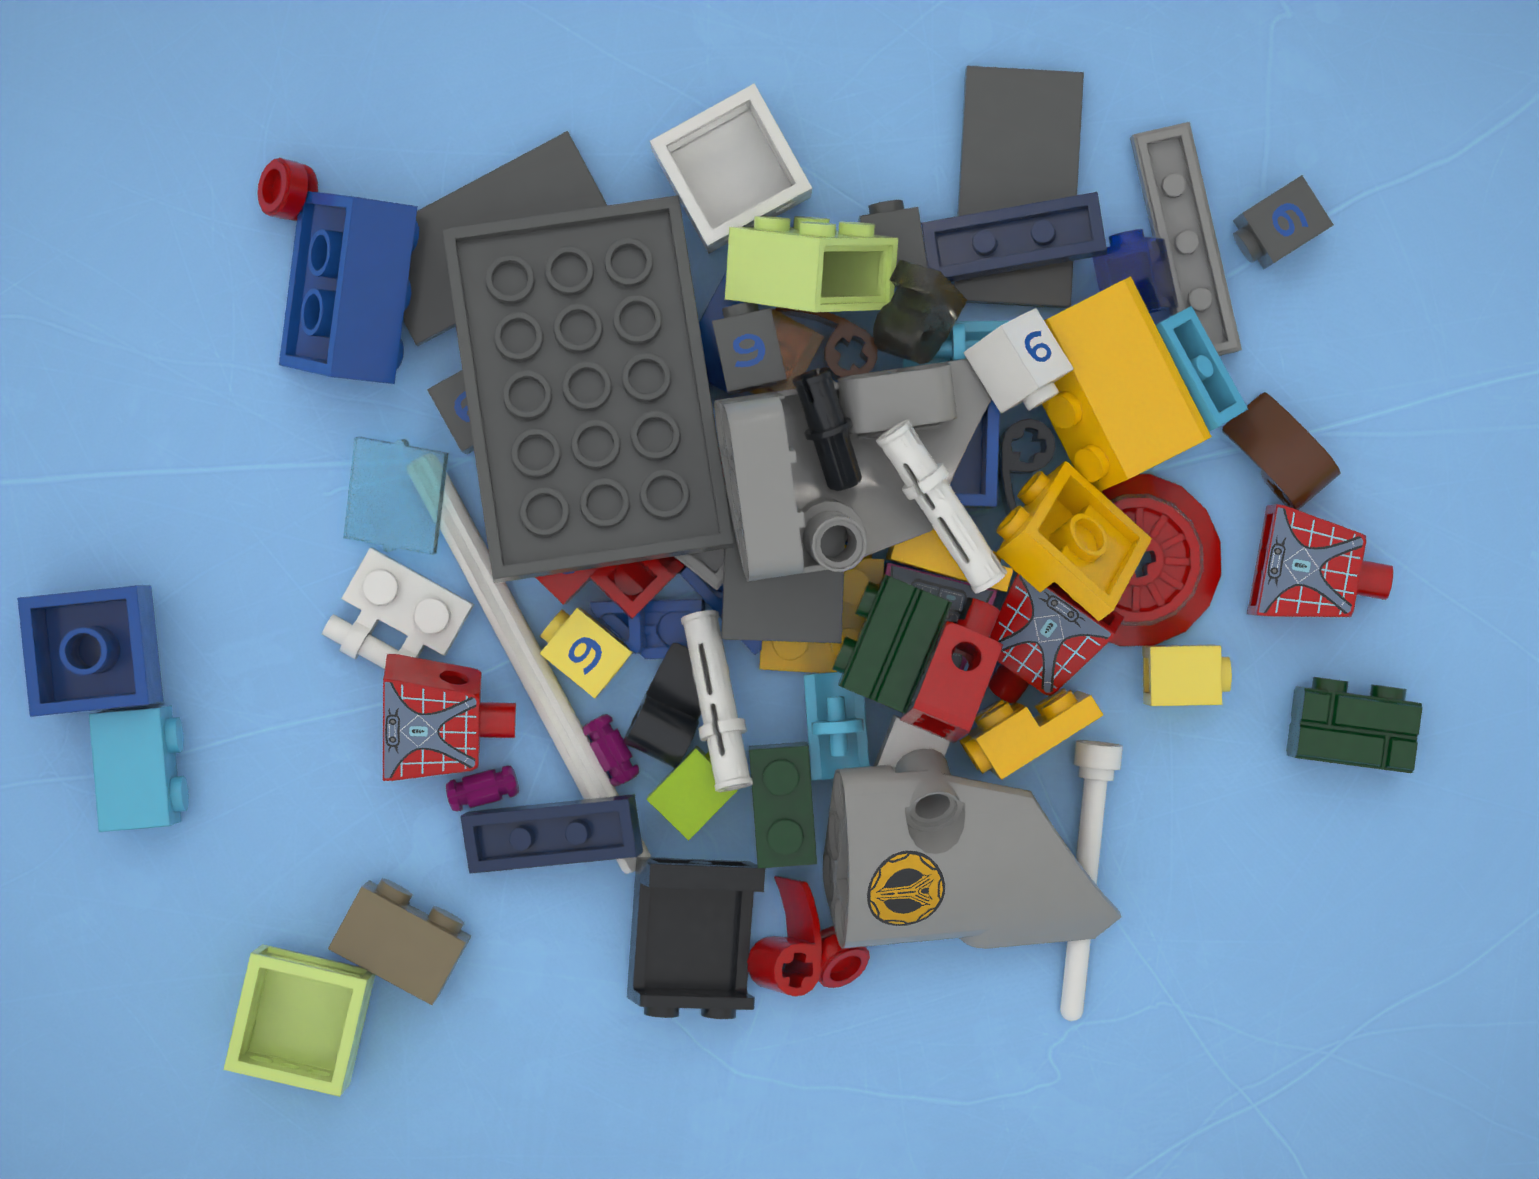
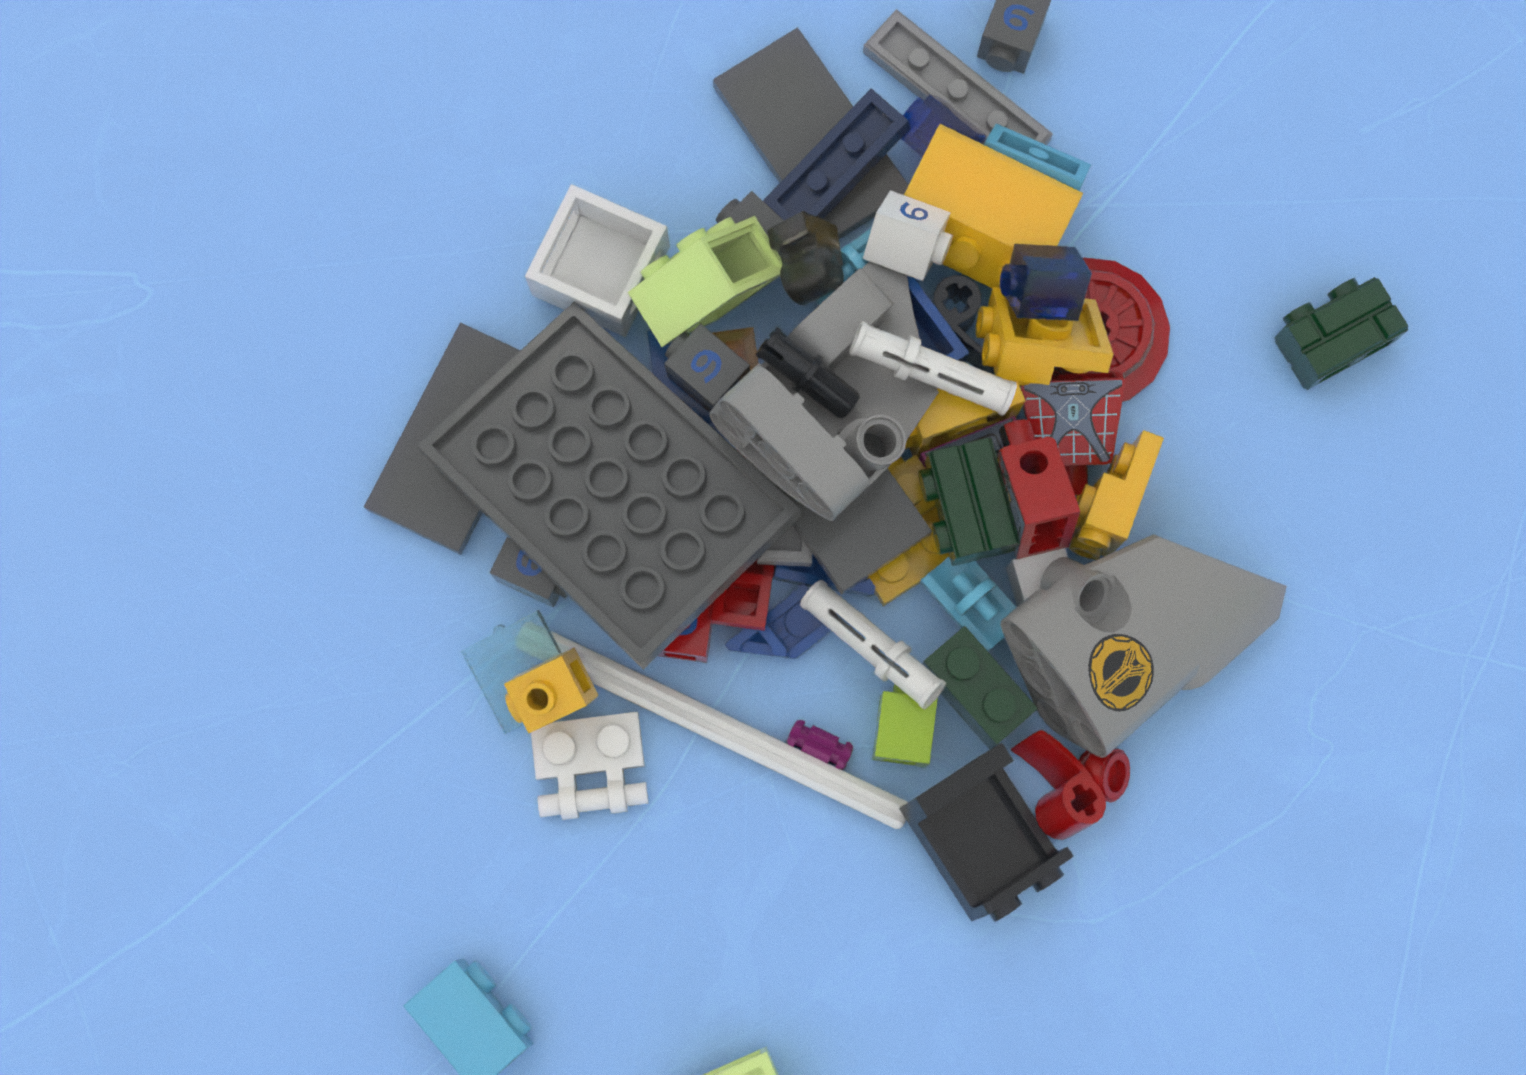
camera: 40 degrees left, 10 degrees down
(90, 650) = (369, 956): blue brick -> none
(285, 188) = (282, 509): red tile -> none
(349, 287) = (376, 541): blue slope -> none
(400, 940) = (768, 1007): dark tan brick -> none
(405, 535) = (549, 691): none -> yellow brick
(436, 718) = (673, 813): red torso -> none
(482, 788) = (745, 844): magenta piece -> none
(552, 834) = (823, 837): dark blue plate -> none
(584, 650) = (745, 682): light yellow brick -> none
(667, 711) = (840, 680): black panel -> none
(844, 332) = (761, 315): reddish brown panel -> none
(1097, 766) = (1182, 494): white piece -> none
(1110, 496) = (1045, 282): none -> clear blue brick
(1185, 675) = (1191, 382): light yellow brick -> none
(1283, 450) = (1146, 178): reddish brown panel -> none
(1312, 568) = (1220, 243): torso -> none

